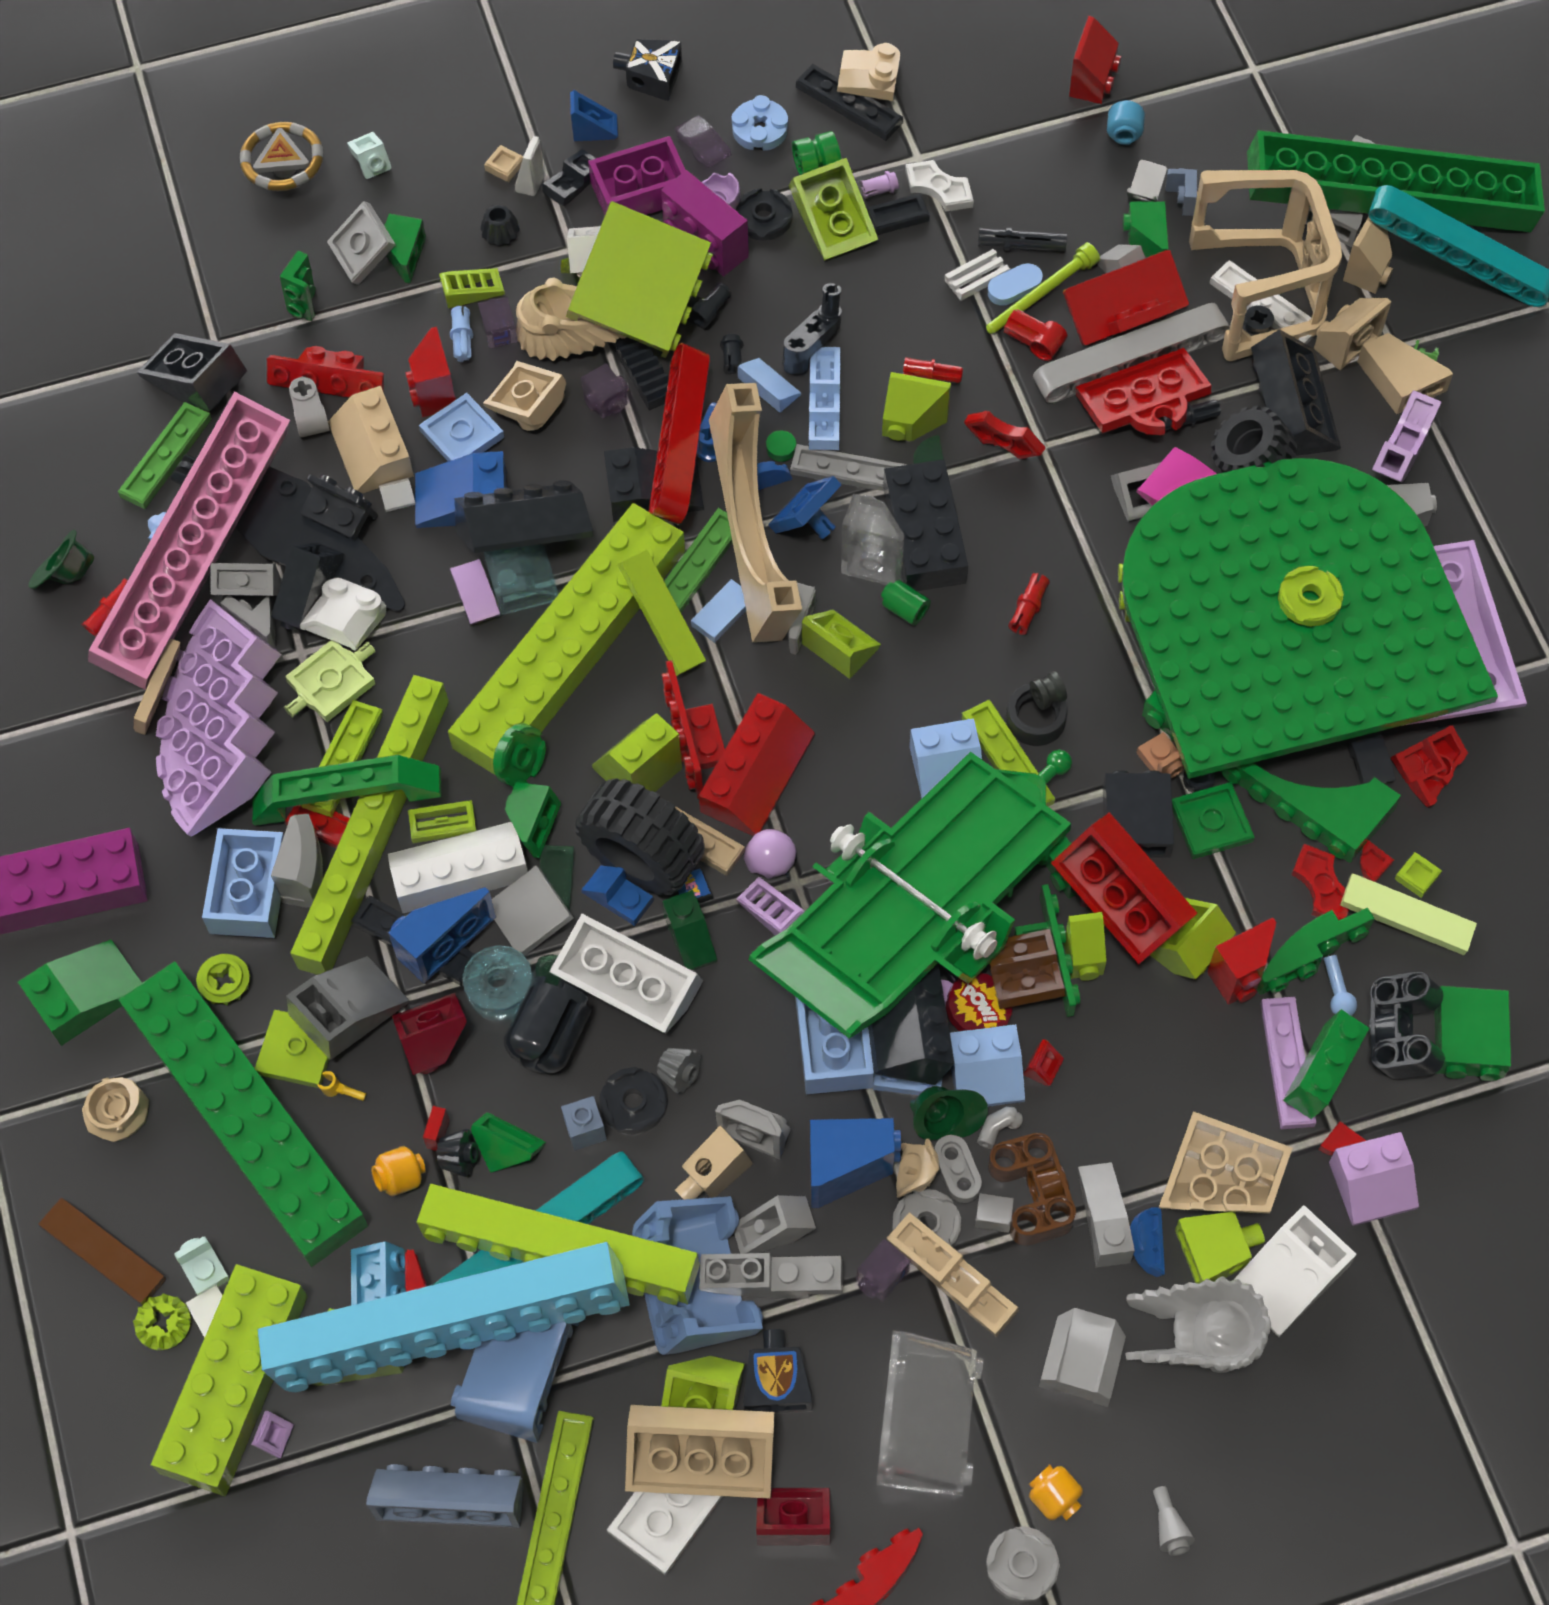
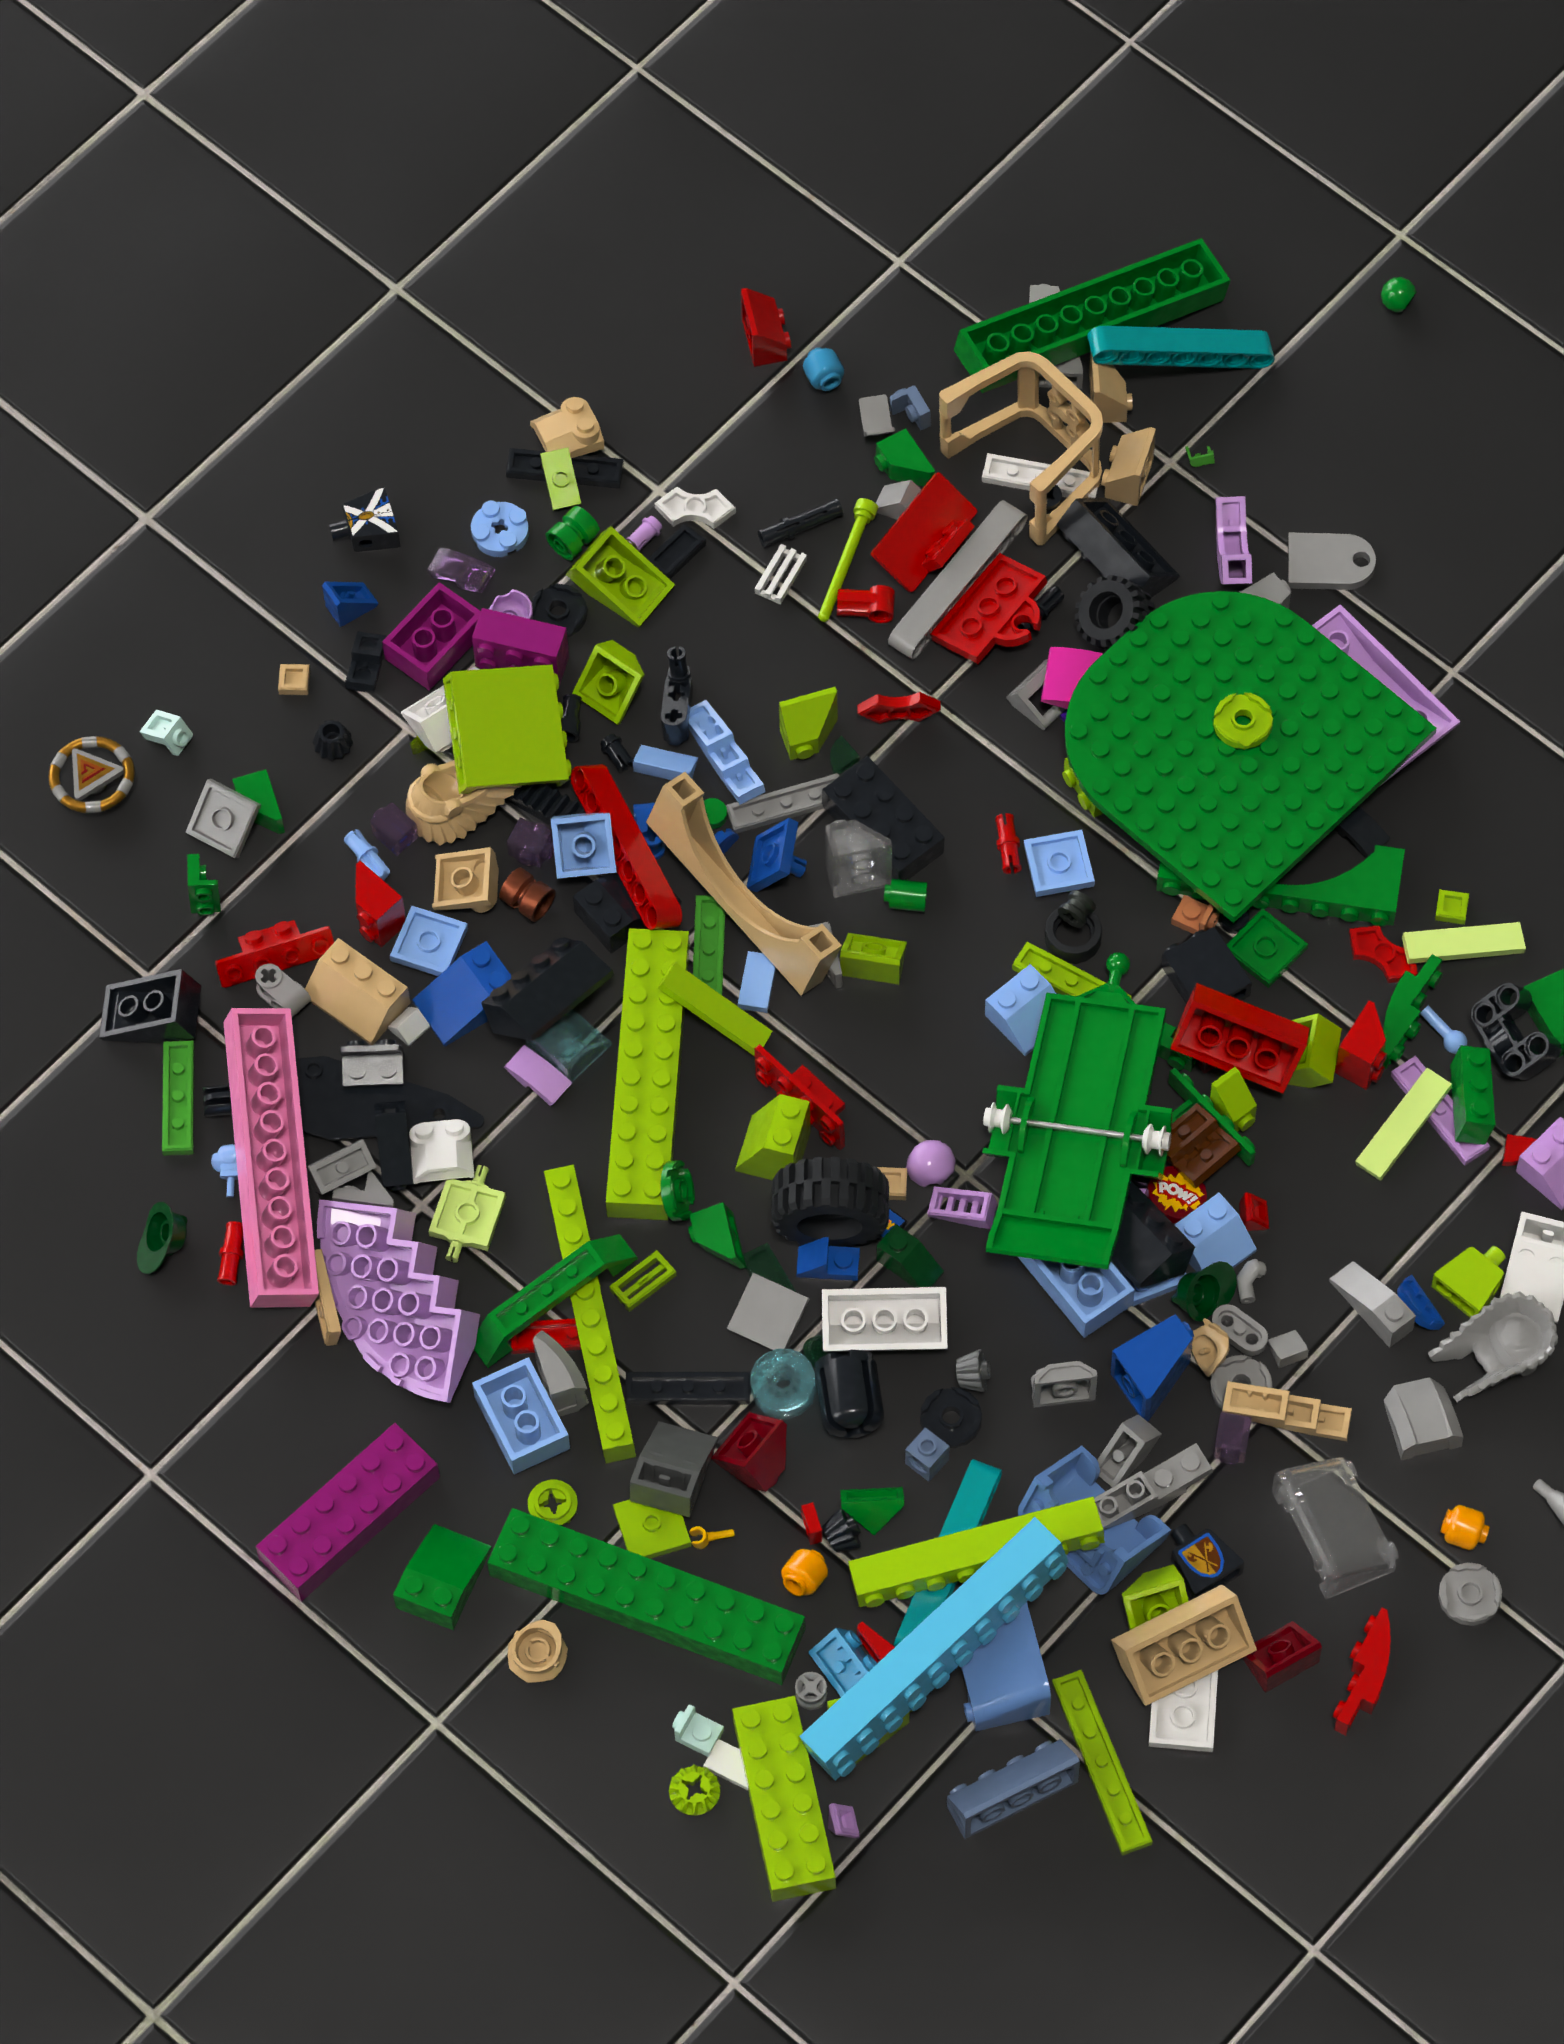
camera: 30 degrees left, 0 degrees up
(102, 1251) = (607, 1765): reddish brown tile -> none
(325, 1281) = (811, 1684): none -> light grey wheel
(348, 745) = (520, 1258): lime tile -> none
(439, 931) = (712, 1368): blue slope -> none
(457, 866) = (683, 1308): white slope -> none
(463, 295) = (344, 820): lime slope -> none
(531, 169) = (326, 675): white slope -> none
(570, 432) = (524, 892): none -> copper wheel
(639, 411) = (583, 844): none -> light blue slope
(721, 1156) = (1056, 1420): tan torso -> none
(756, 766) = (874, 1097): red slope -> none
(765, 287) = (610, 680): none -> lime slope
(836, 105) = (560, 478): none -> lime plate
(932, 370) = (798, 681): red axle -> none
(1014, 284) = (818, 566): light blue tile -> none
(1046, 1185) = (1314, 1304): reddish brown beam -> none
(1064, 644) = (1059, 863): none -> light blue plate
(1225, 1169) = (1444, 1217): tan wedge -> none
(1242, 1056) = (1403, 1124): none -> yellowish green tile
(1374, 862) = (1411, 914): red tile -> none
(1400, 369) = (1191, 483): tan slope -> none
(1431, 764) = (1409, 810): red slope -> none
(1490, 502) = (1327, 561): none -> light grey tile

